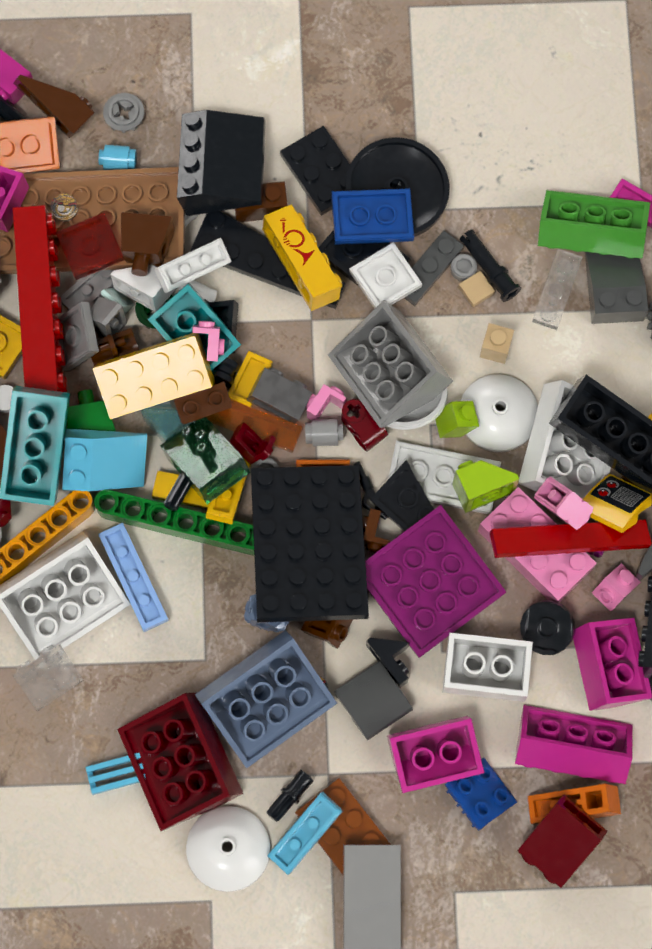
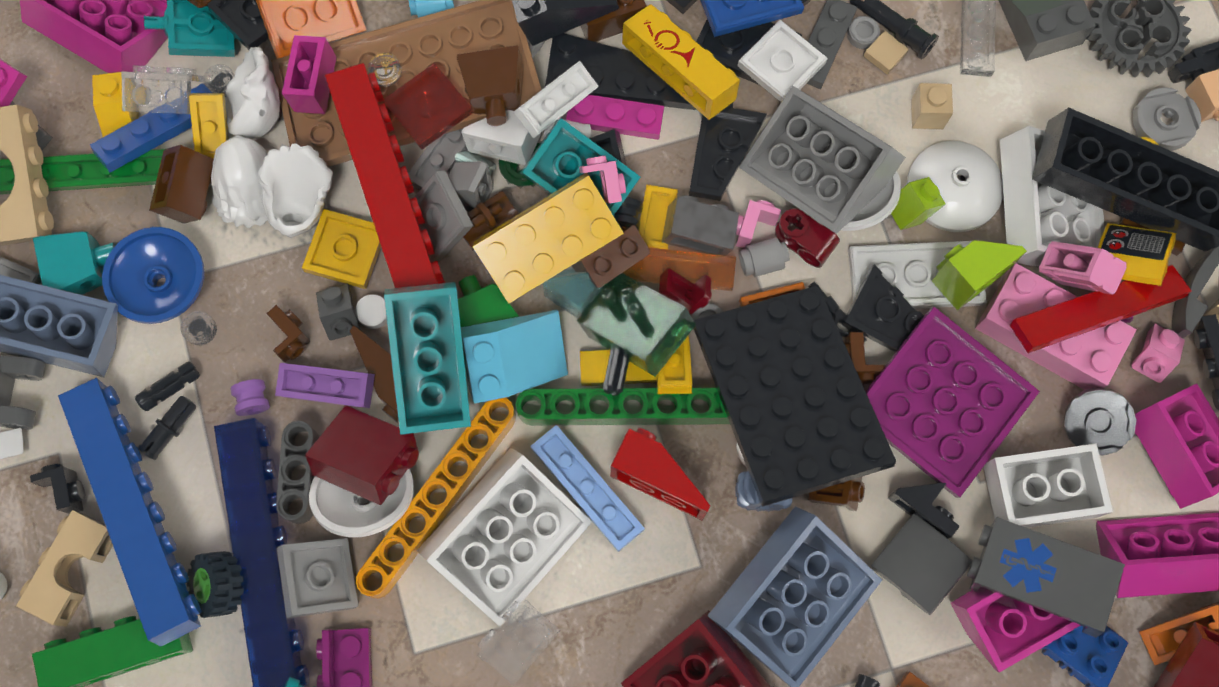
camera: 15 degrees left, 0 degrees up
(181, 572) = (652, 470): none -> red slope
(243, 289) = (622, 115): none -> dark pink plate
(317, 337) = (721, 150): none -> black wing
(459, 729) = (1047, 574): none -> dark grey panel

